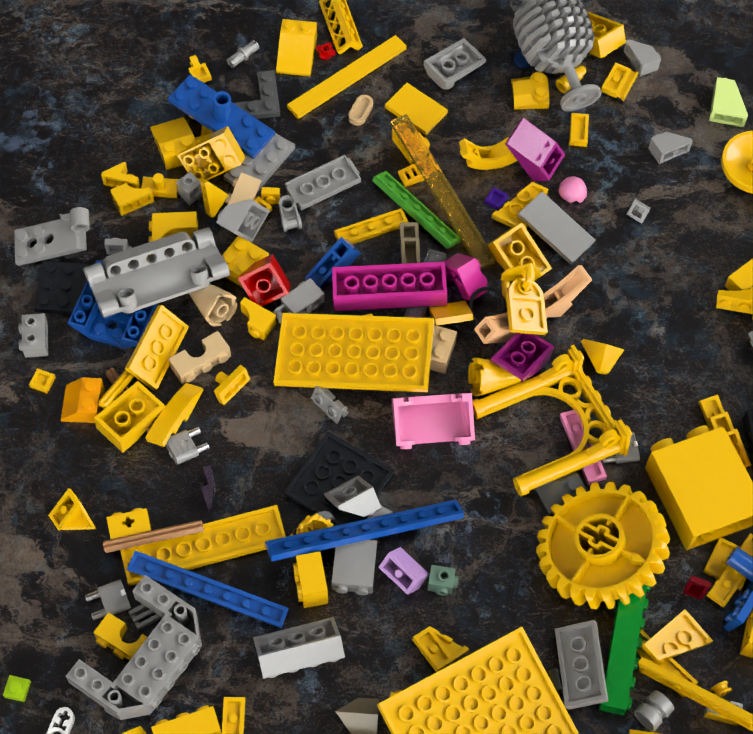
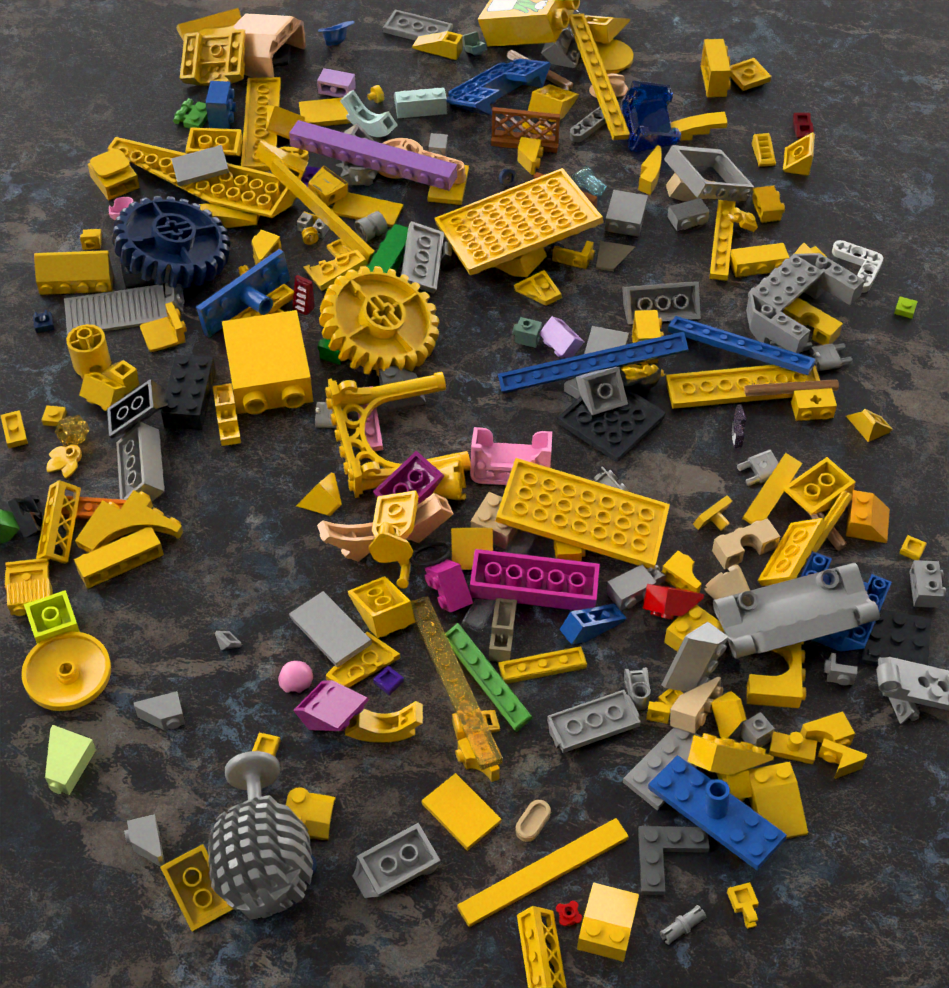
camera: 170 degrees left, 10 degrees down
(619, 81) = (189, 810): yellow plate -> none

